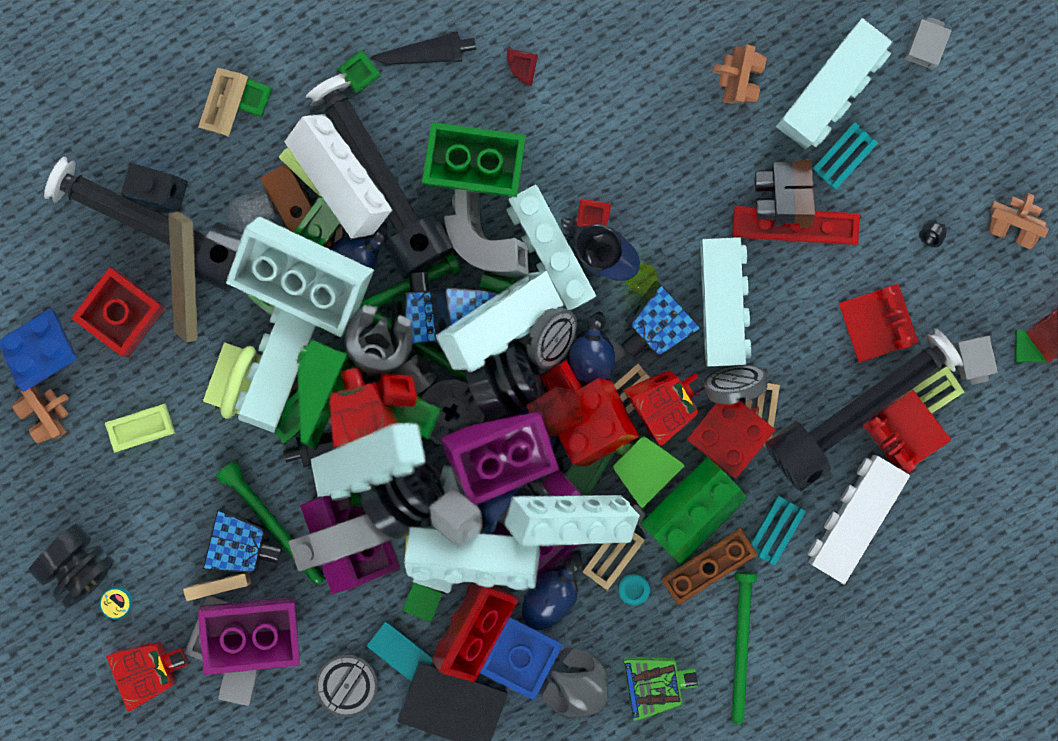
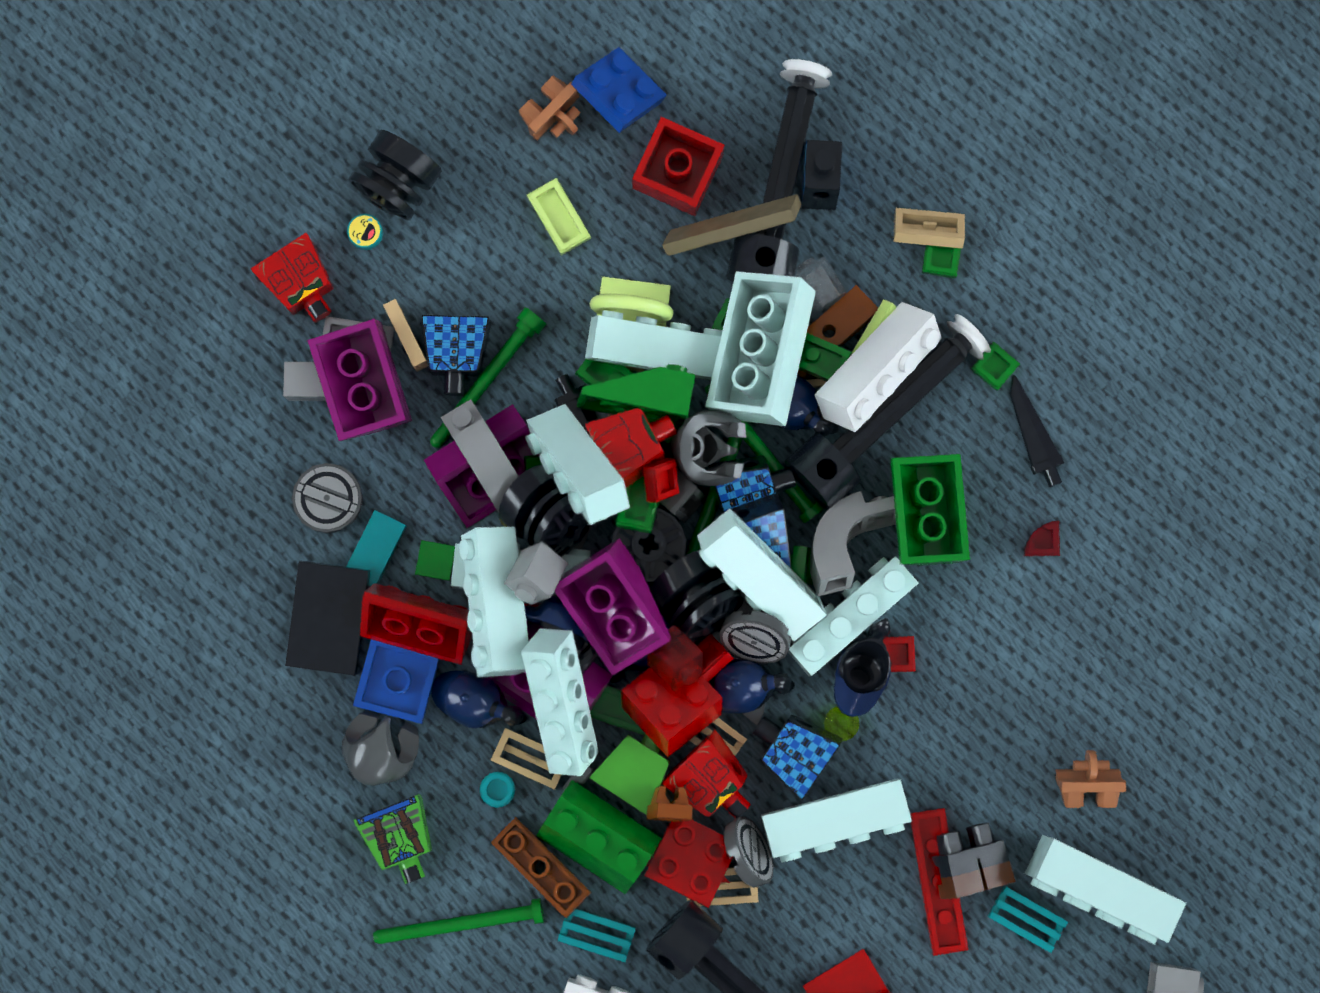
camera: 75 degrees right, 5 degrees down
(686, 437) = (663, 810): none -> dark orange tile

